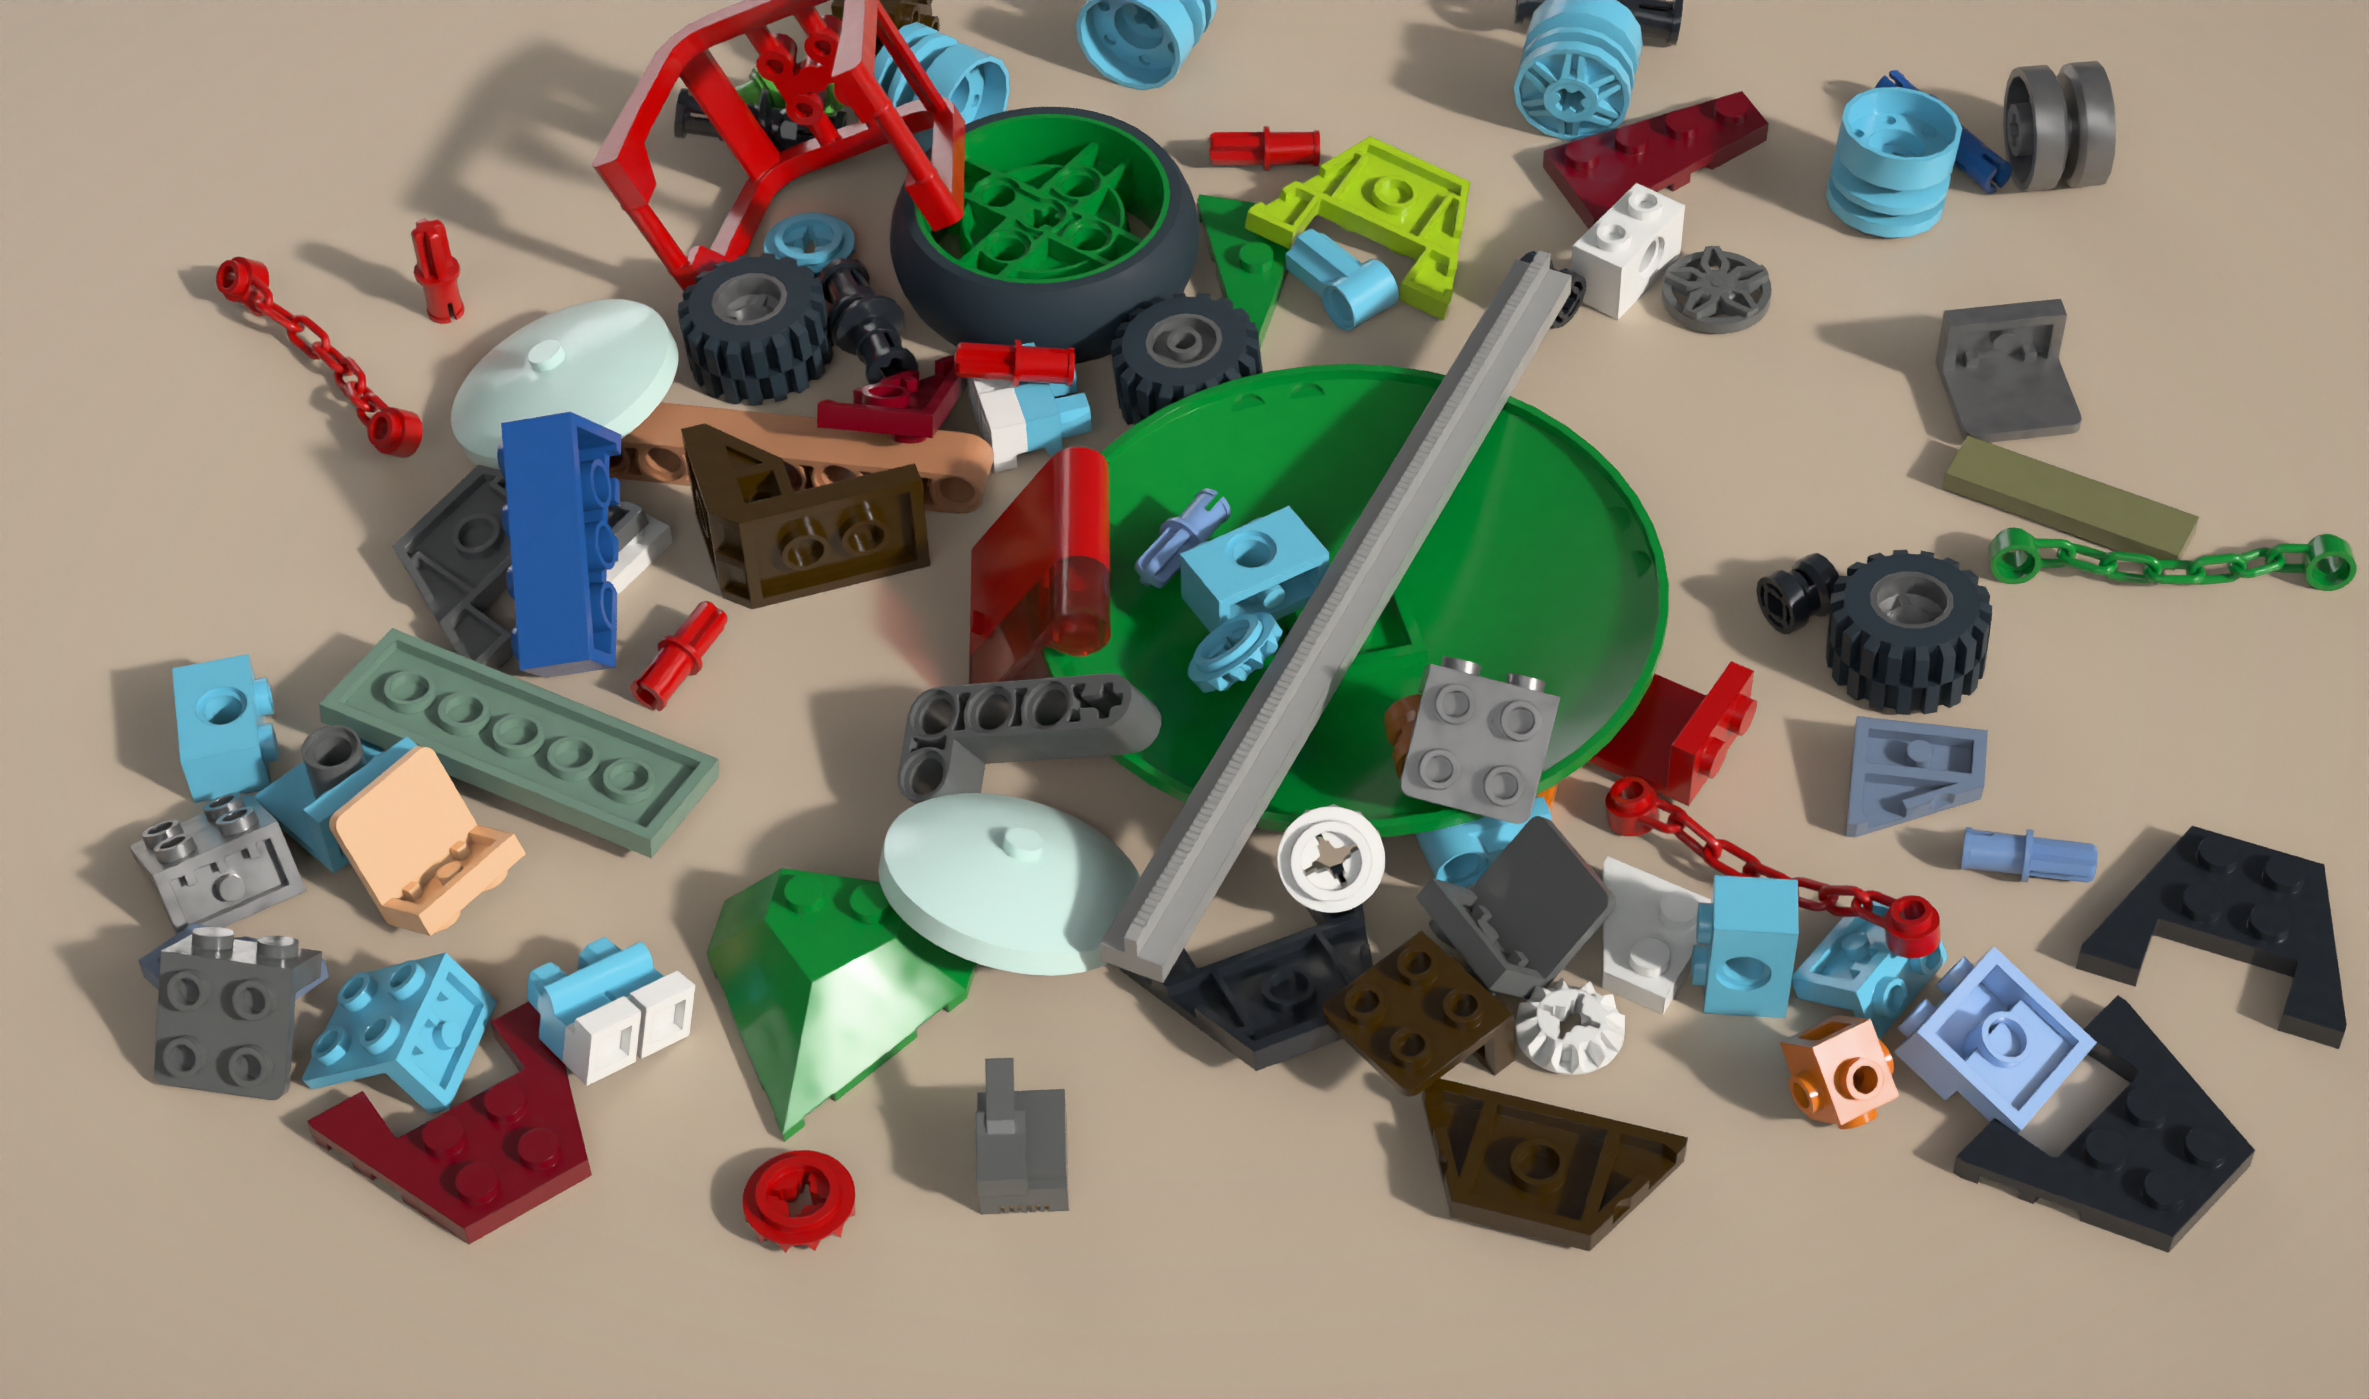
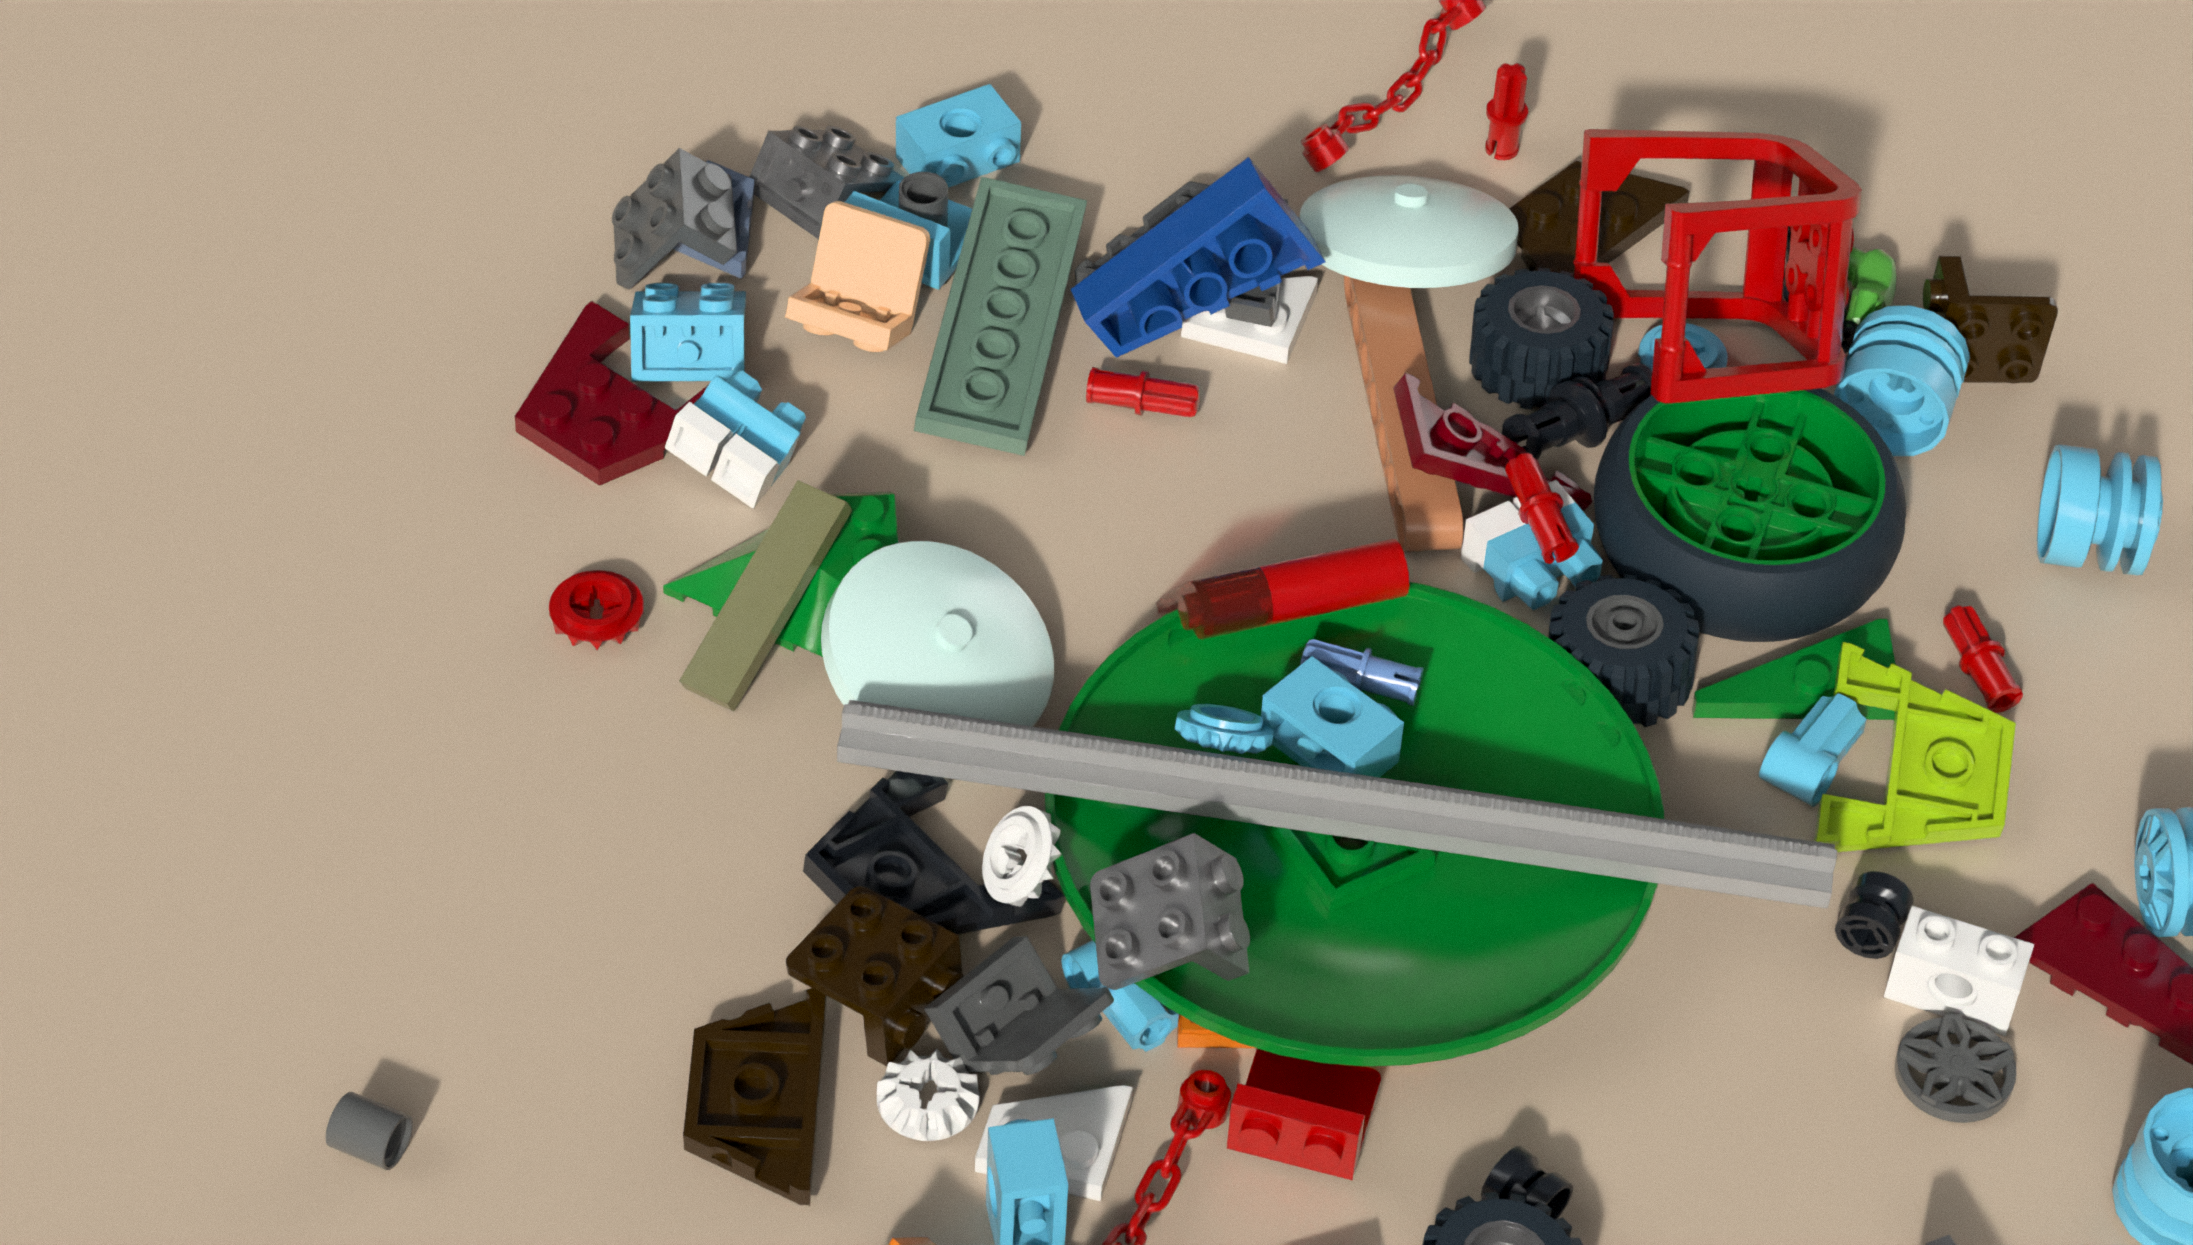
camera: 70 degrees right, 0 degrees up
(586, 258) = (1550, 218): none -> dark brown wing
(801, 543) = (1280, 406): dark brown bracket -> none
(877, 1014) = (765, 595): none -> olive tile
(971, 725) = (1091, 591): dark grey beam -> none
(1020, 1145) = (678, 728): dark grey piece -> none

